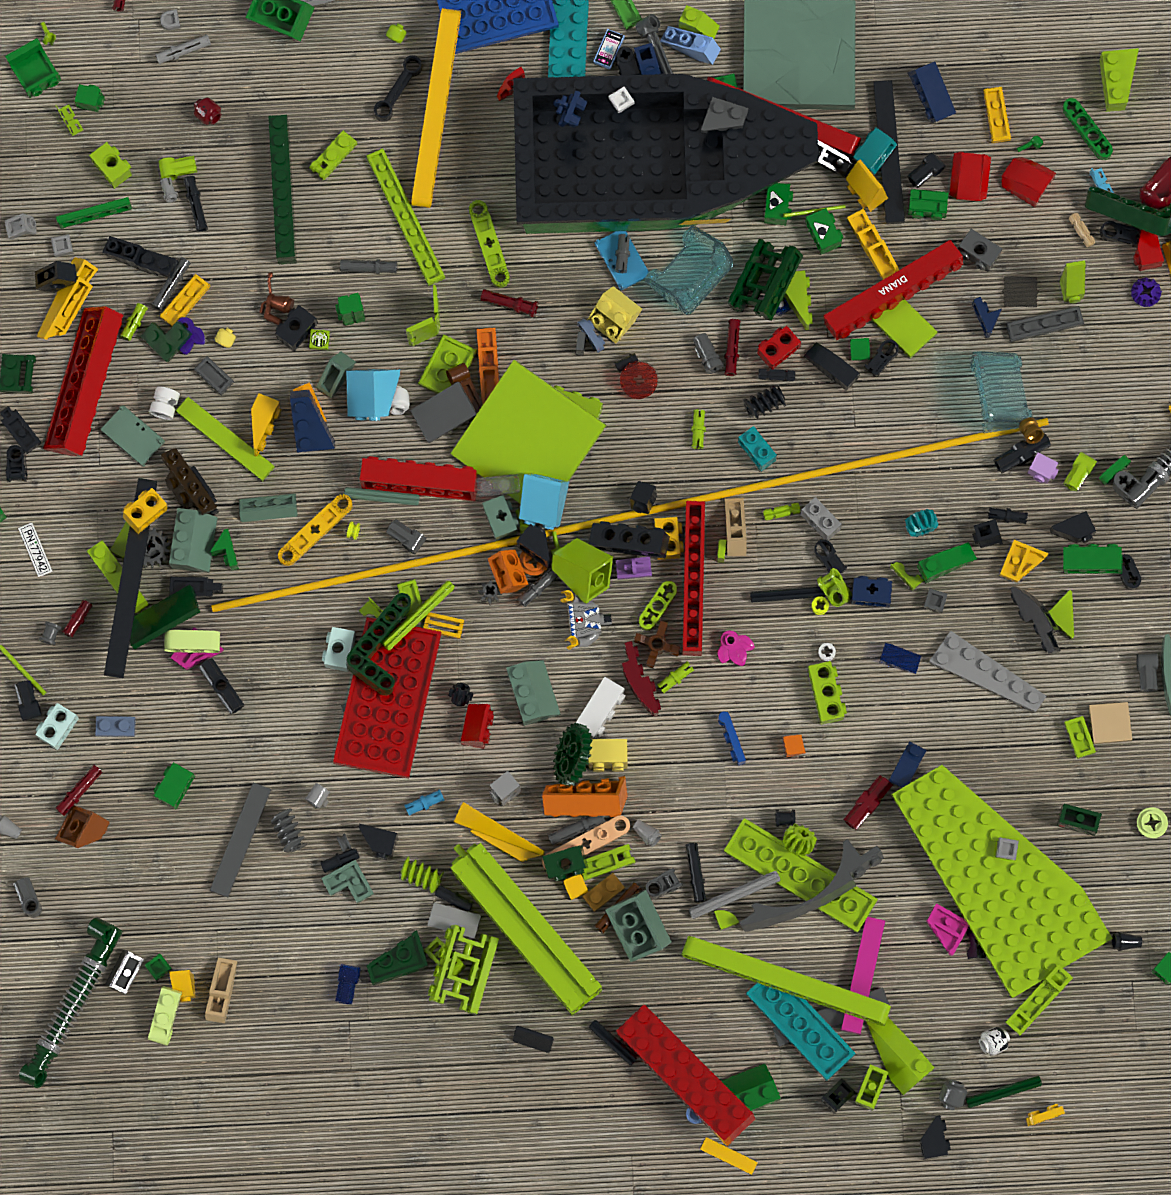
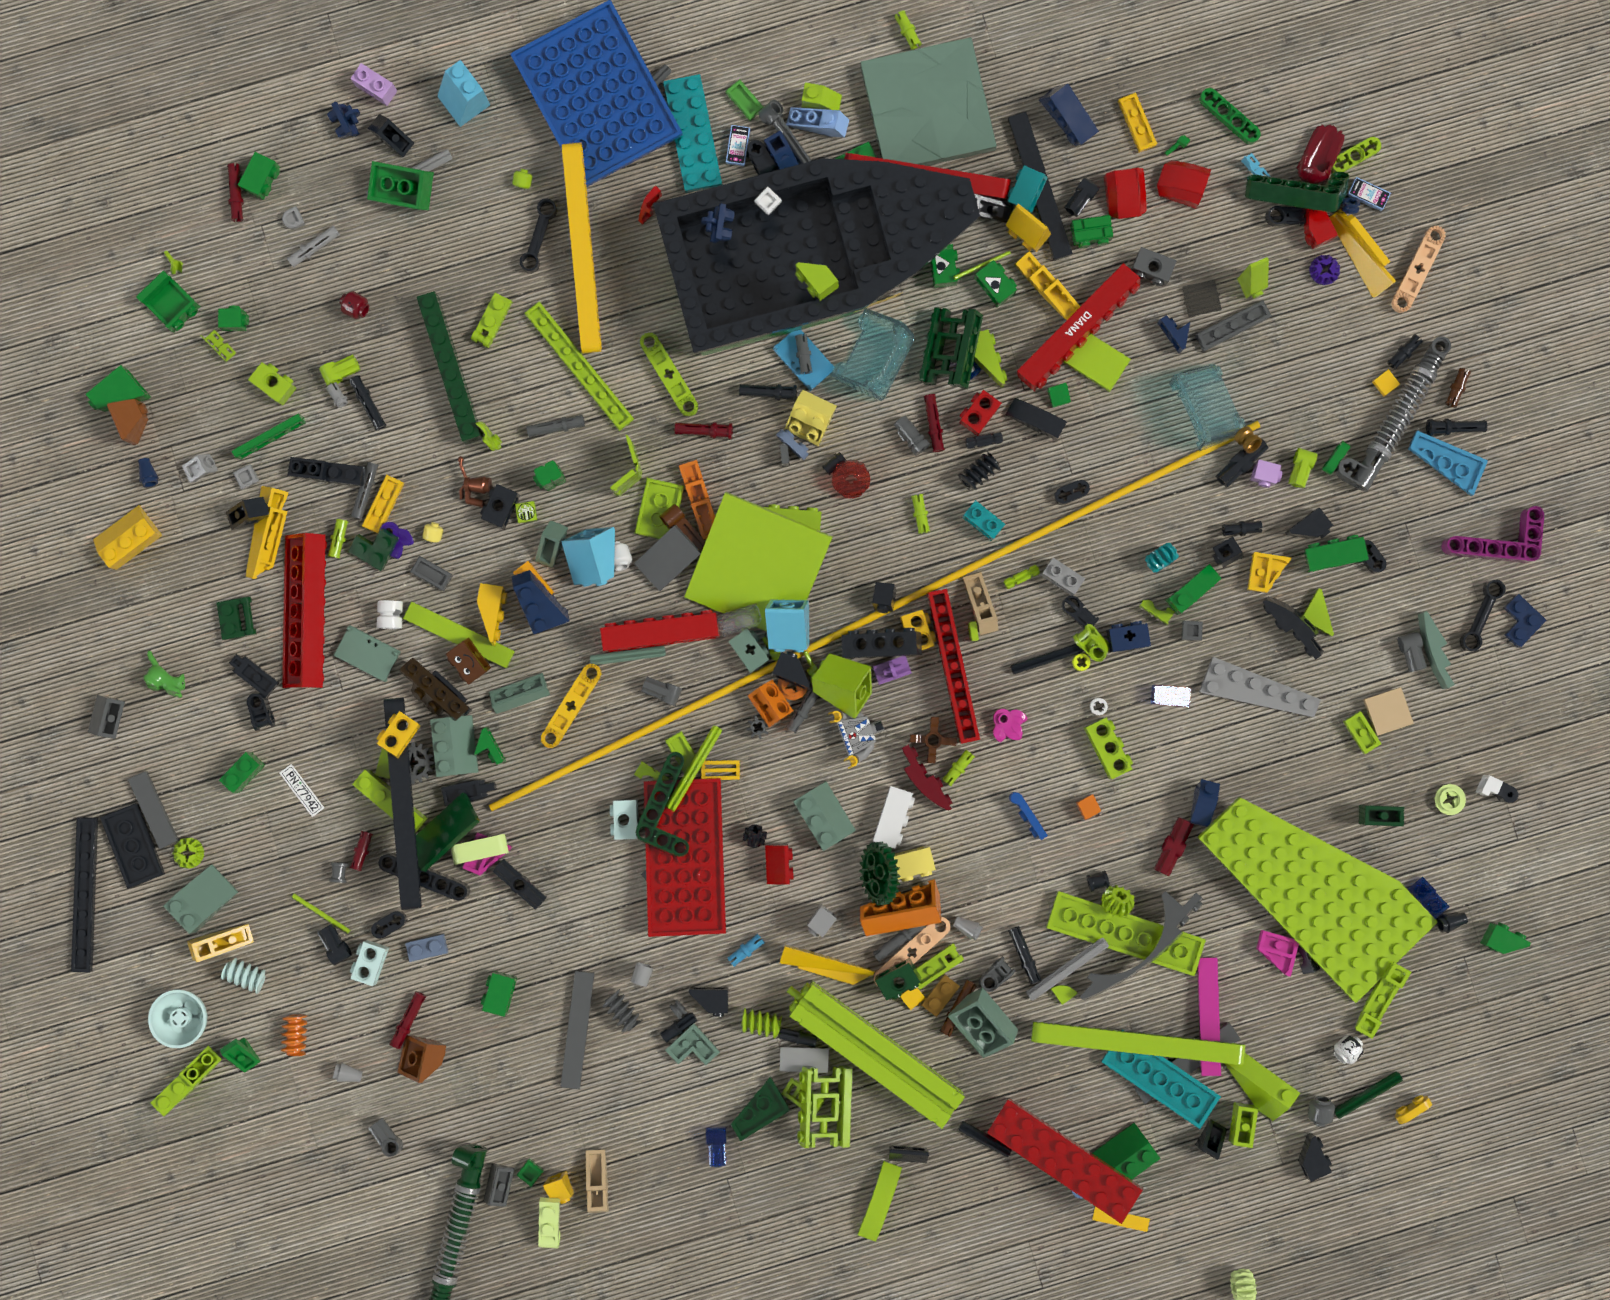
camera: 15 degrees left, 10 degrees up
(86, 699) = (391, 928): none -> black beam
(140, 660) = (432, 883): none -> black beam
(227, 463) = (468, 661): none -> reddish brown brick
(305, 266) = (489, 439): none -> lime plate
(353, 530) = (608, 697): neon yellow bush -> none
(493, 1078) = (880, 1201): none -> lime slope
(588, 283) = (778, 392): none -> black pin
(645, 614) = (916, 703): lime beam -> none
(650, 180) = (818, 278): none -> lime slope
(723, 116) = (875, 193): dark grey wing -> none
(849, 438) = (1069, 488): none -> black beam
(881, 360) = (1082, 401): black piece -> none
(1007, 848) = (1321, 864): light grey tile -> none
(1082, 230) = (1247, 221): tan axle -> none
(1109, 913) = (1428, 897): none -> clear blue slope
(1117, 75) = (1248, 56): lime wedge -> none

